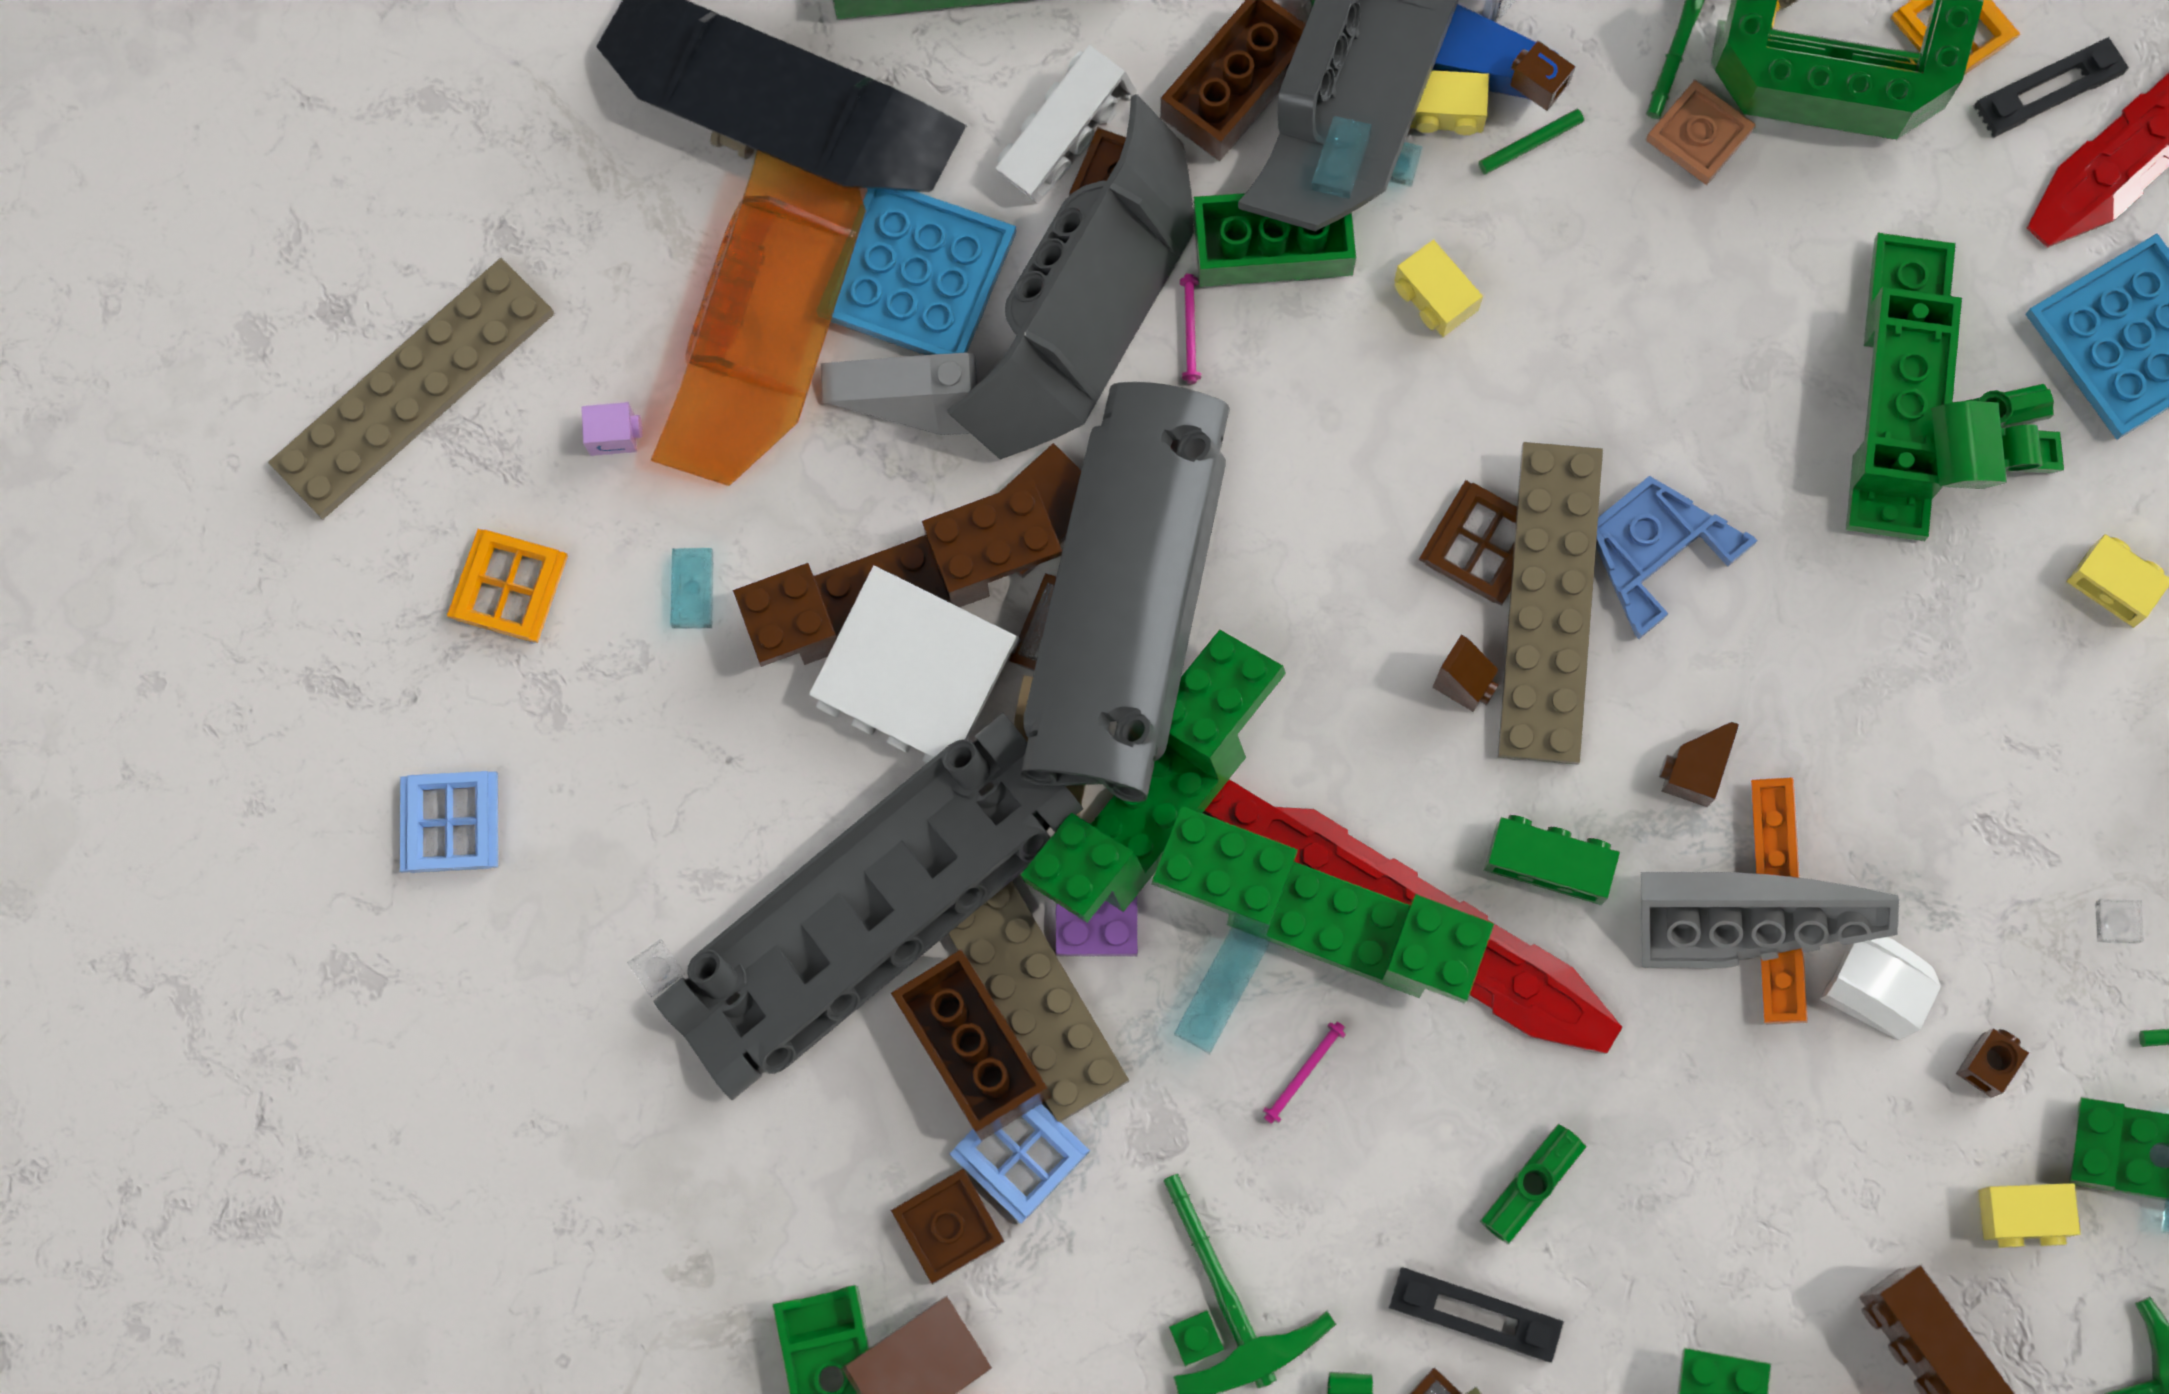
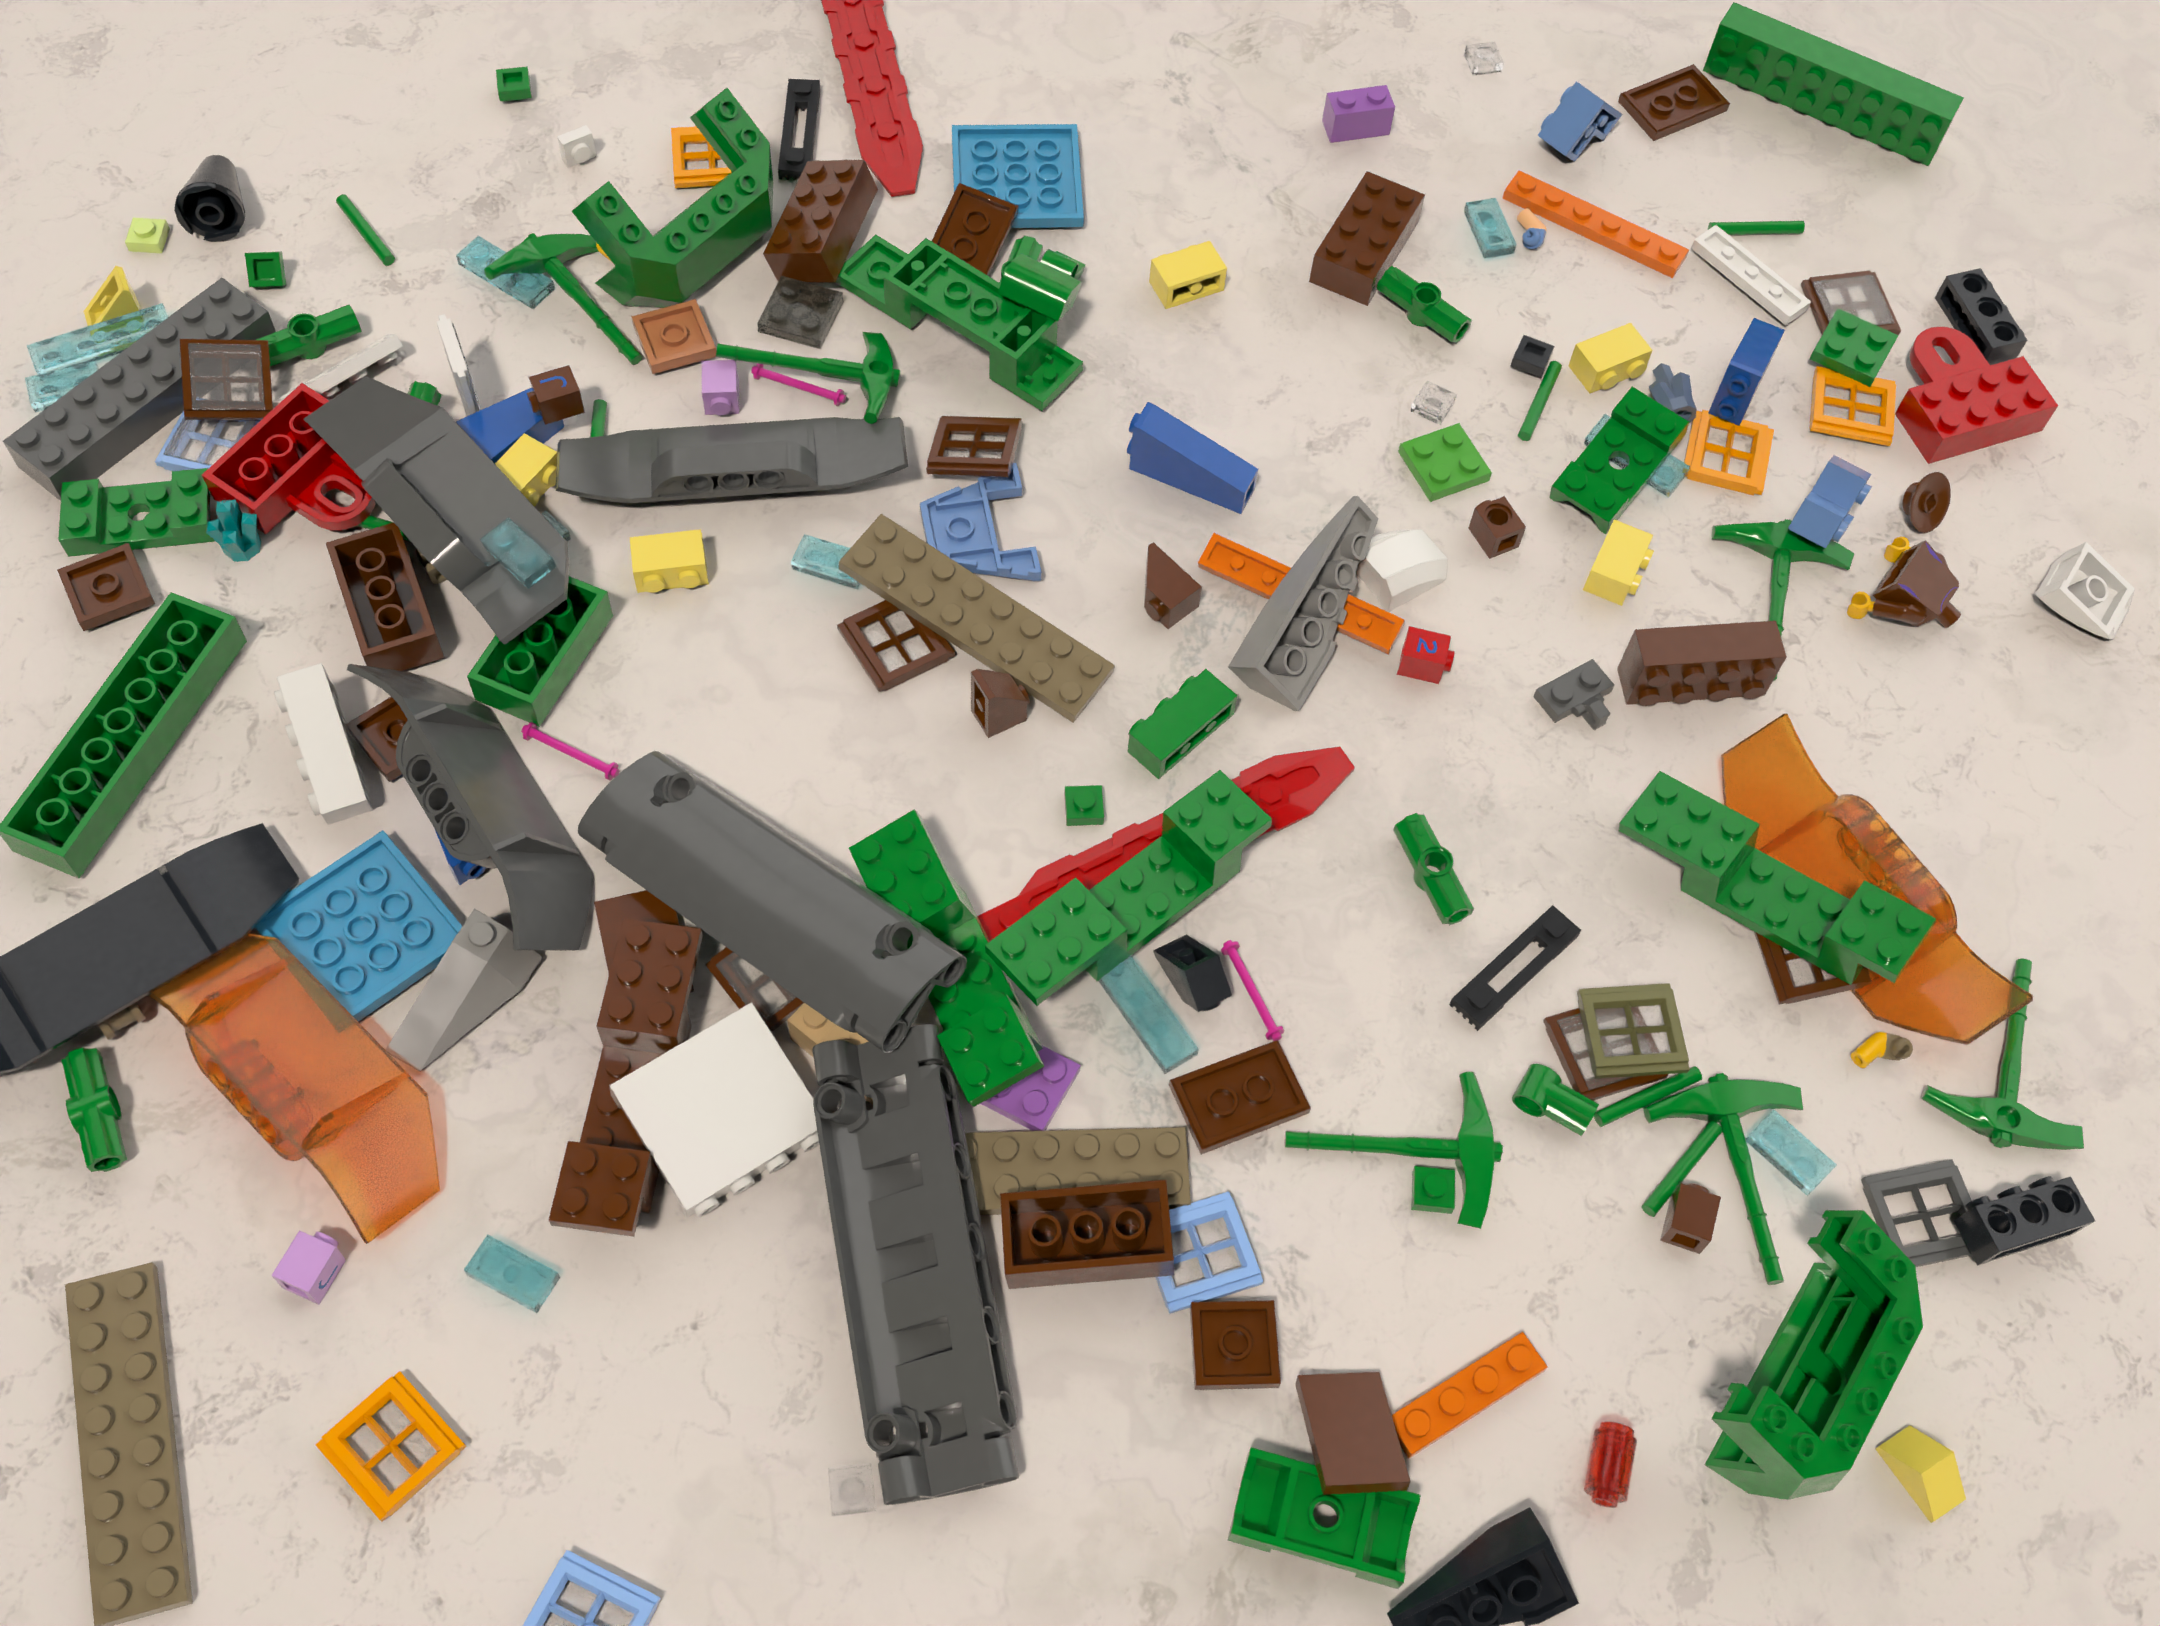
camera: 70 degrees left, 15 degrees down
(647, 176) = (93, 1109): none -> green piece
(1190, 1114) = (1239, 1097): none -> reddish brown tile
(1286, 1007) = (1194, 972): none -> black slope
(1409, 815) = (1084, 805): none -> green plate
(1528, 421) = (822, 560): none -> clear light blue plate
(1587, 274) = (730, 459): none -> dark grey piece
(1665, 212) = (720, 387): none -> lavender brick
(1714, 234) = (838, 397): none -> dark pink axle
(1751, 489) = (974, 446): none -> reddish brown piece
(1777, 344) = (874, 374): none -> green piece
(1781, 1062) = (1425, 655): none -> red brick
(1813, 229) = (800, 312): none -> clear smoke plate
(1835, 1240) = (1577, 693): none -> dark grey hinge
(1868, 708) = (1188, 460): none -> blue slope
(1931, 182) = (821, 220): none -> reddish brown brick
(2018, 336) = (975, 227): none -> reddish brown tile
(2050, 969) = (1444, 462): none -> bright green plate

